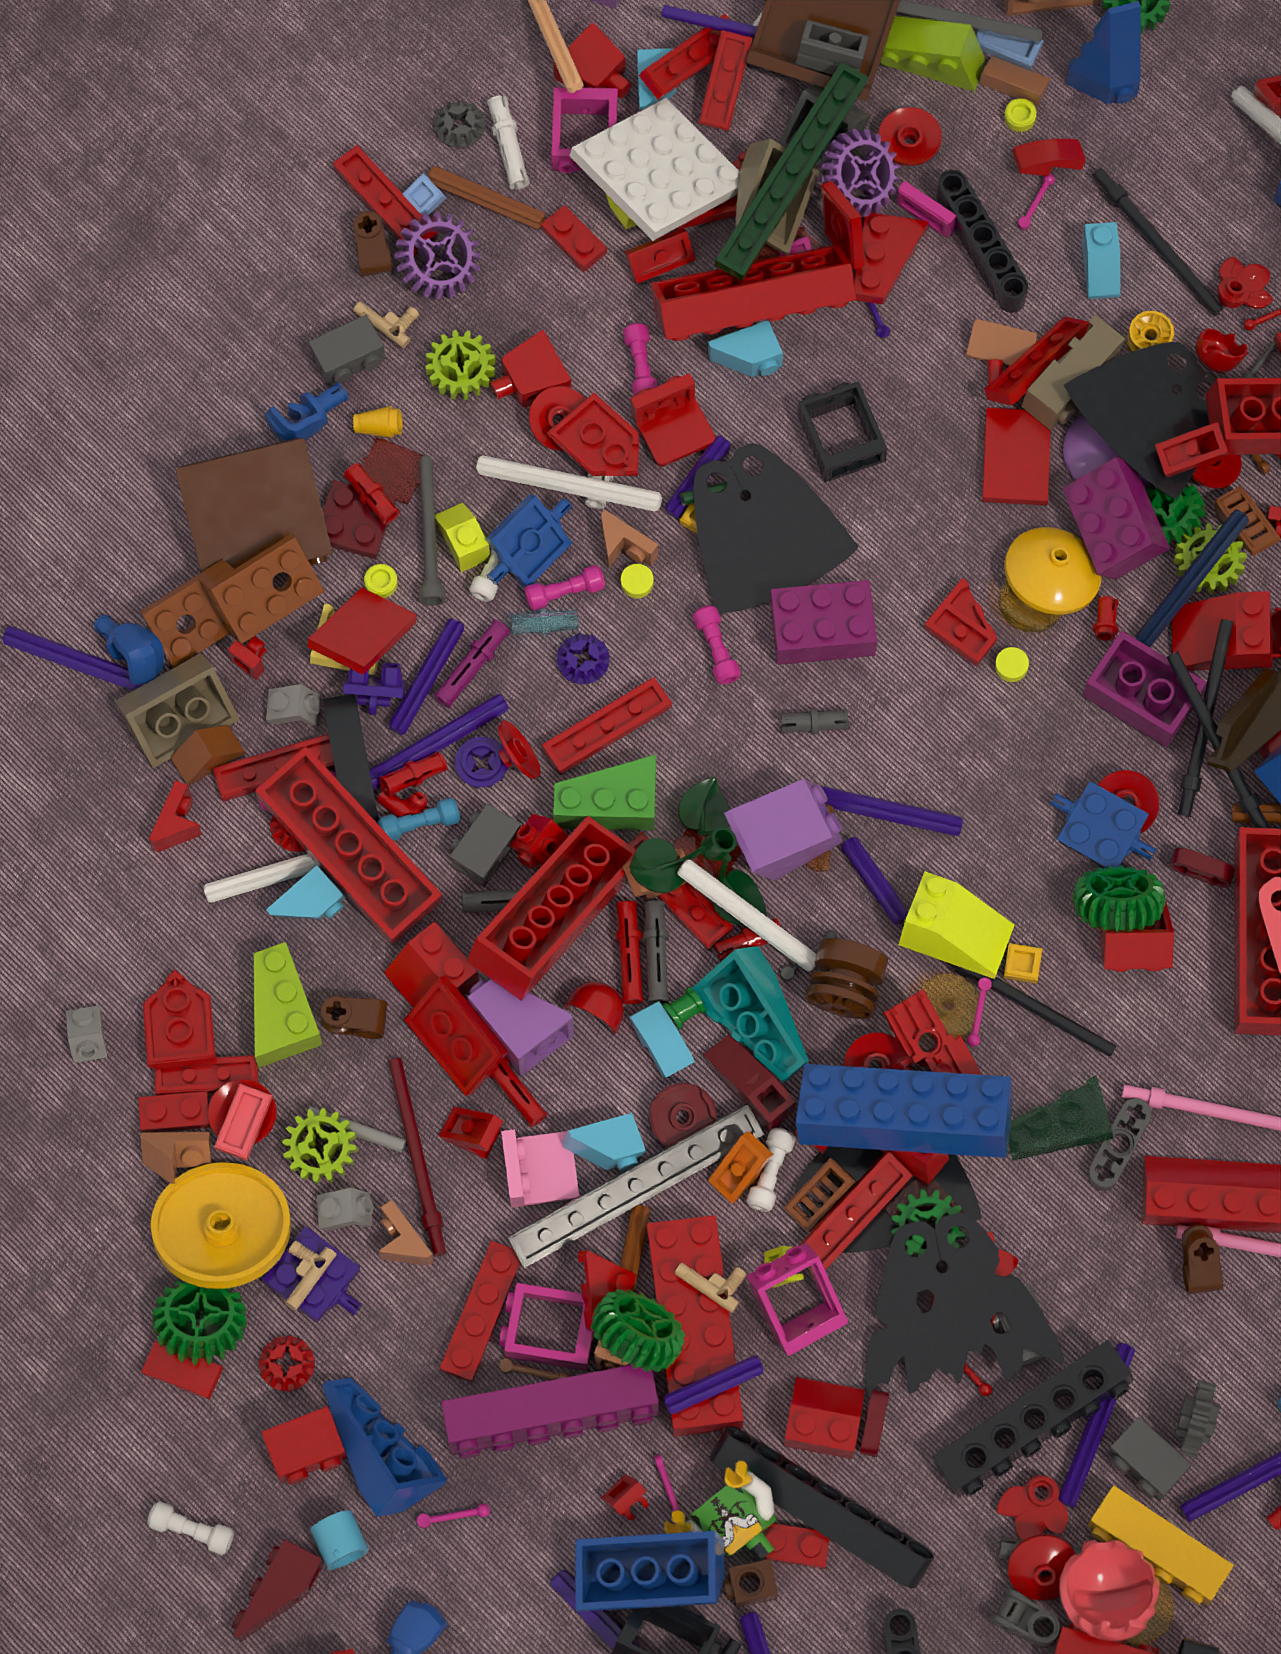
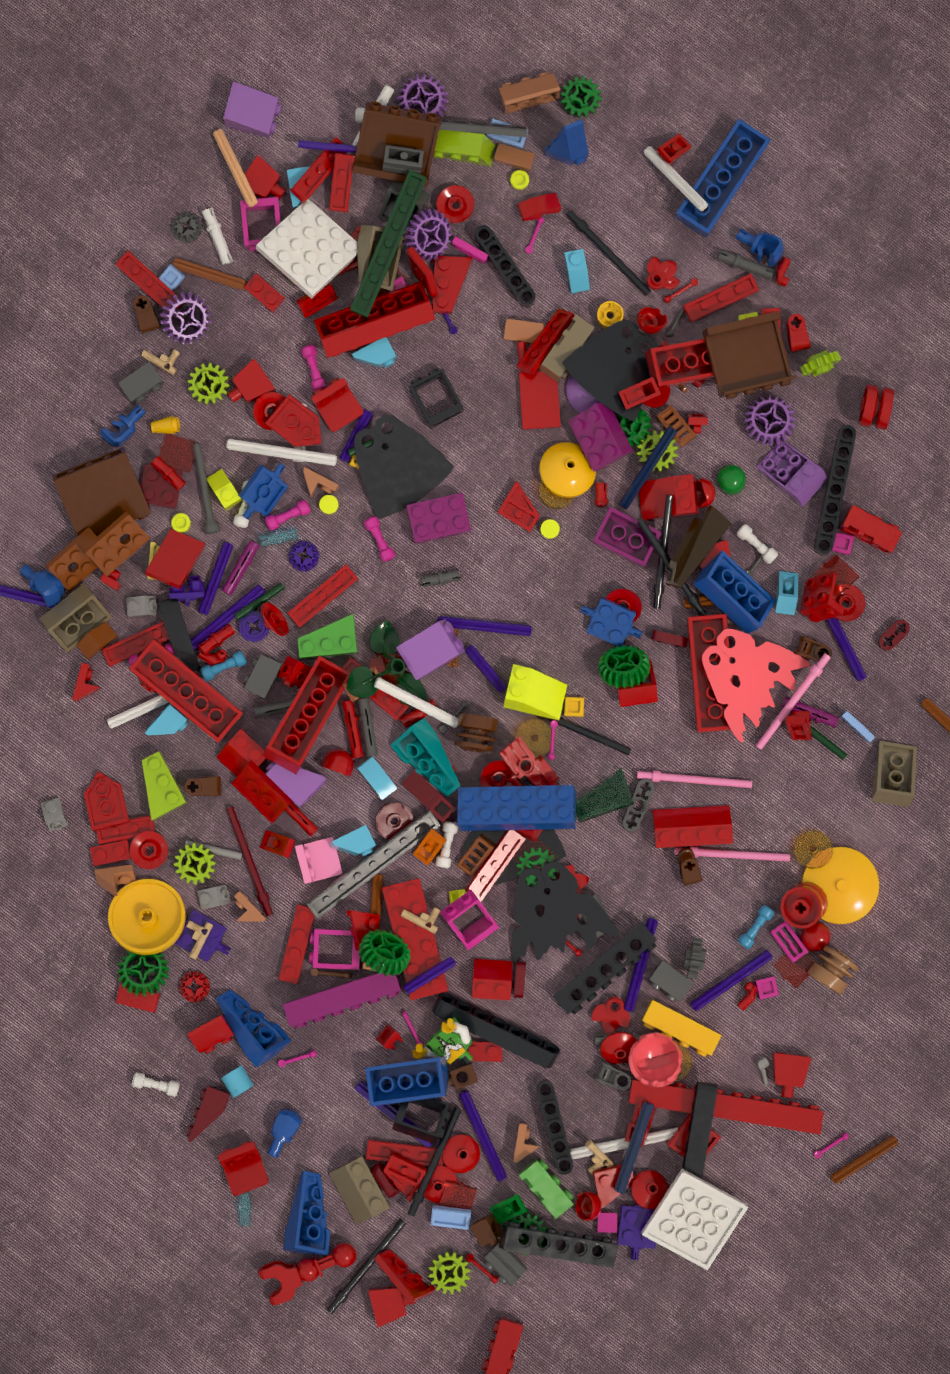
camera: 10 degrees left, 15 degrees up
(243, 1122) = (150, 856): coral tile -> none
(492, 723) = (259, 601): none -> dark green bar
(684, 1007) = (387, 758): green bush -> none

